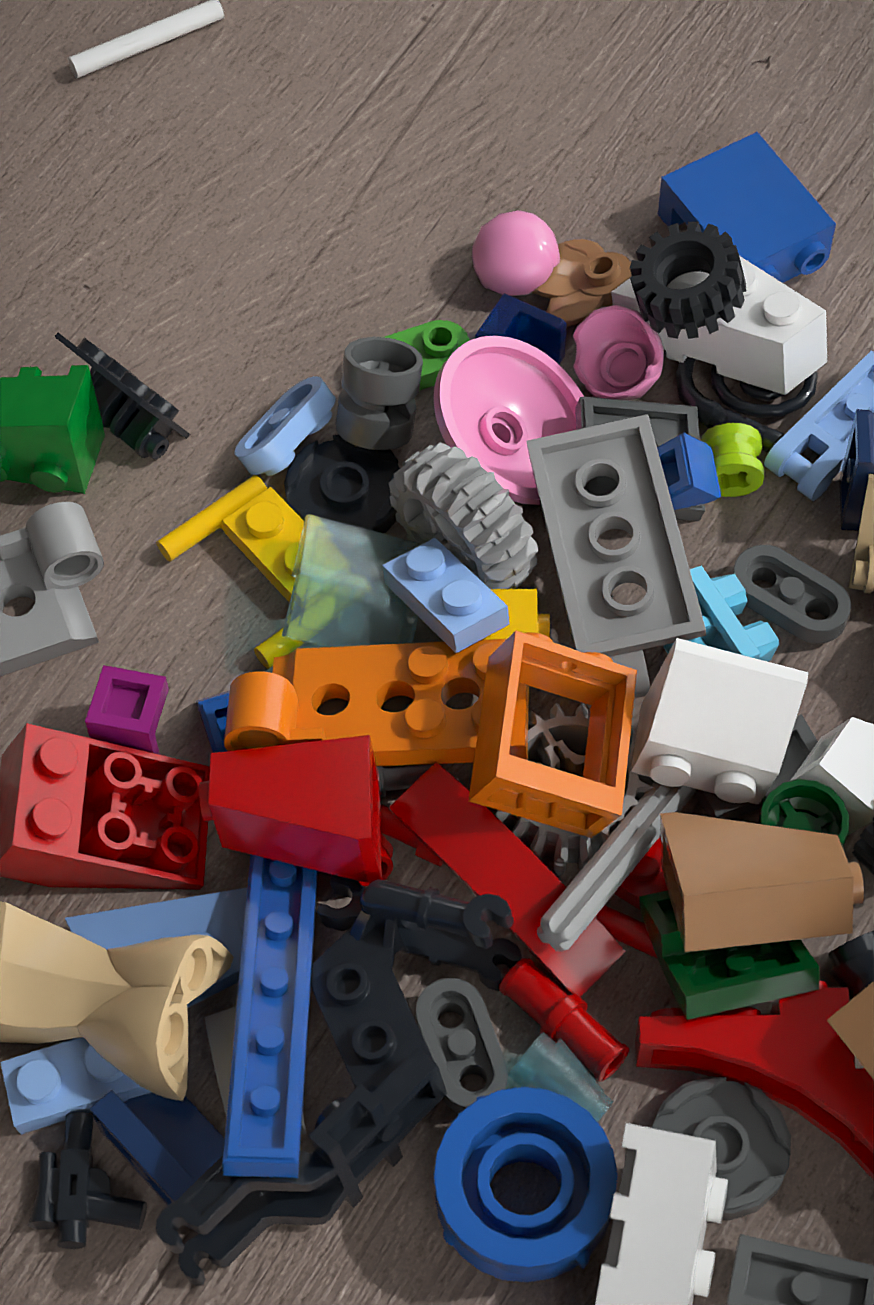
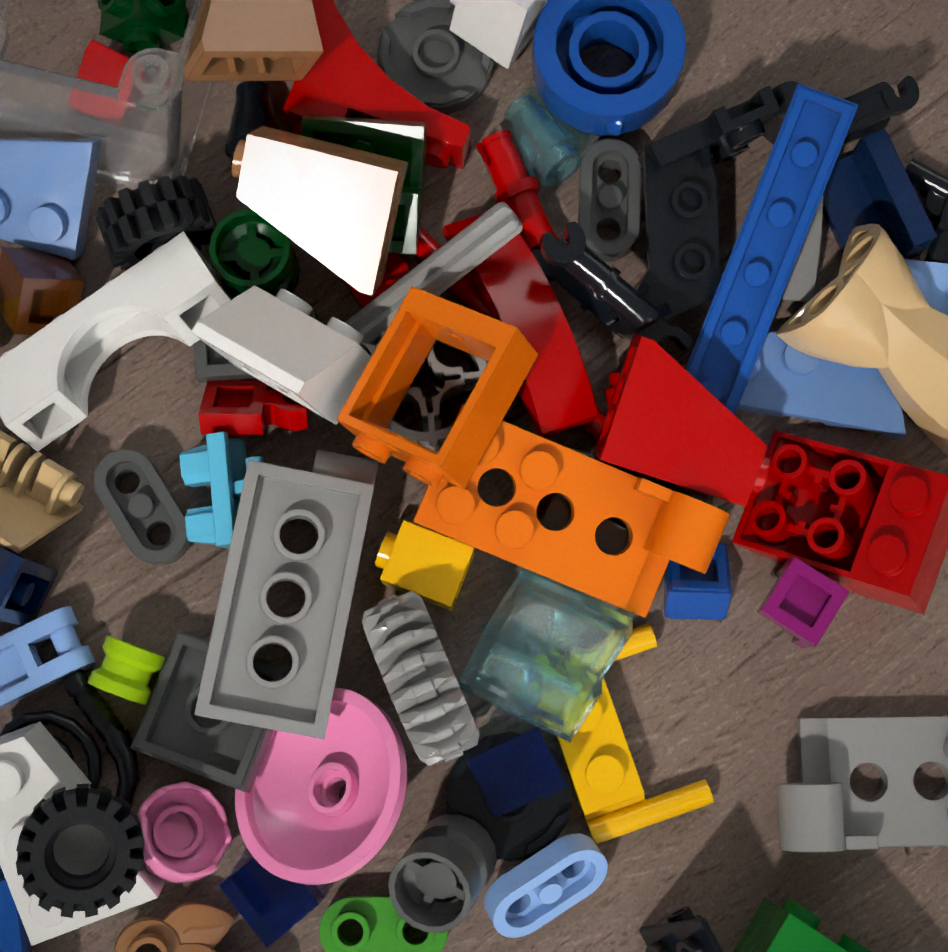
camera: 160 degrees left, 20 degrees up
(346, 493) = (516, 772): none -> clear blue panel
(446, 595) = (470, 595): light blue plate -> none
(689, 471) = (179, 653): blue slope -> none

